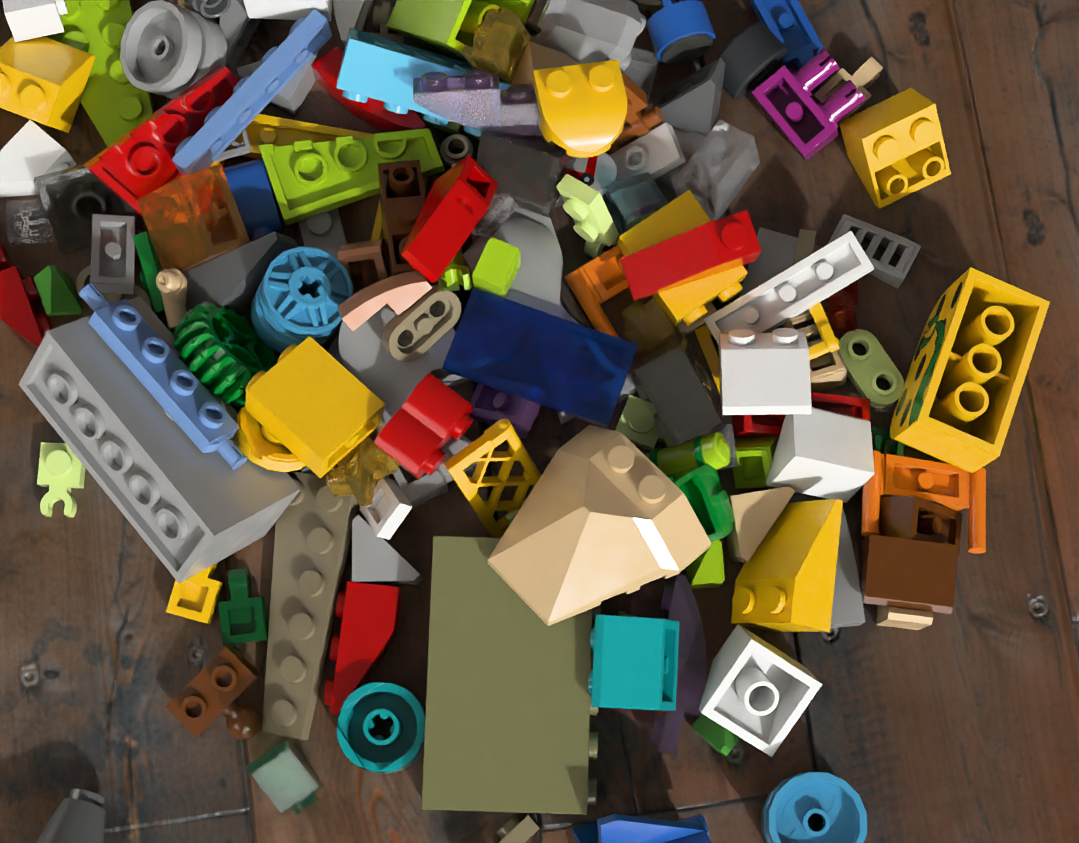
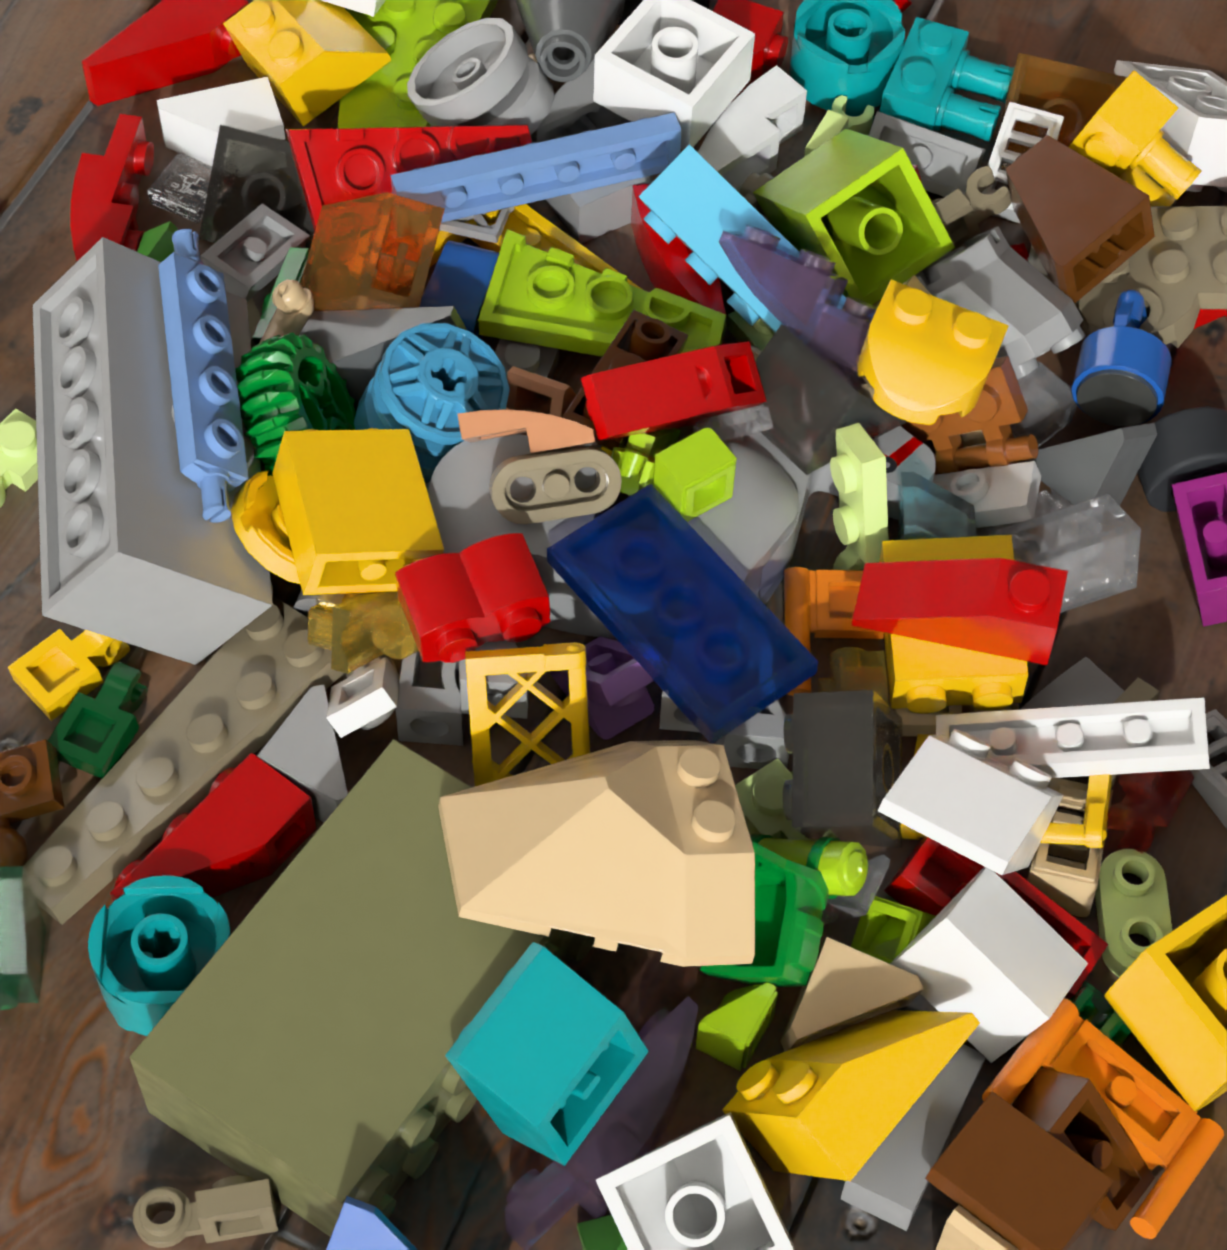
camera: 30 degrees right, 20 degrees down
(498, 44) = (872, 251): clear yellow brick -> none

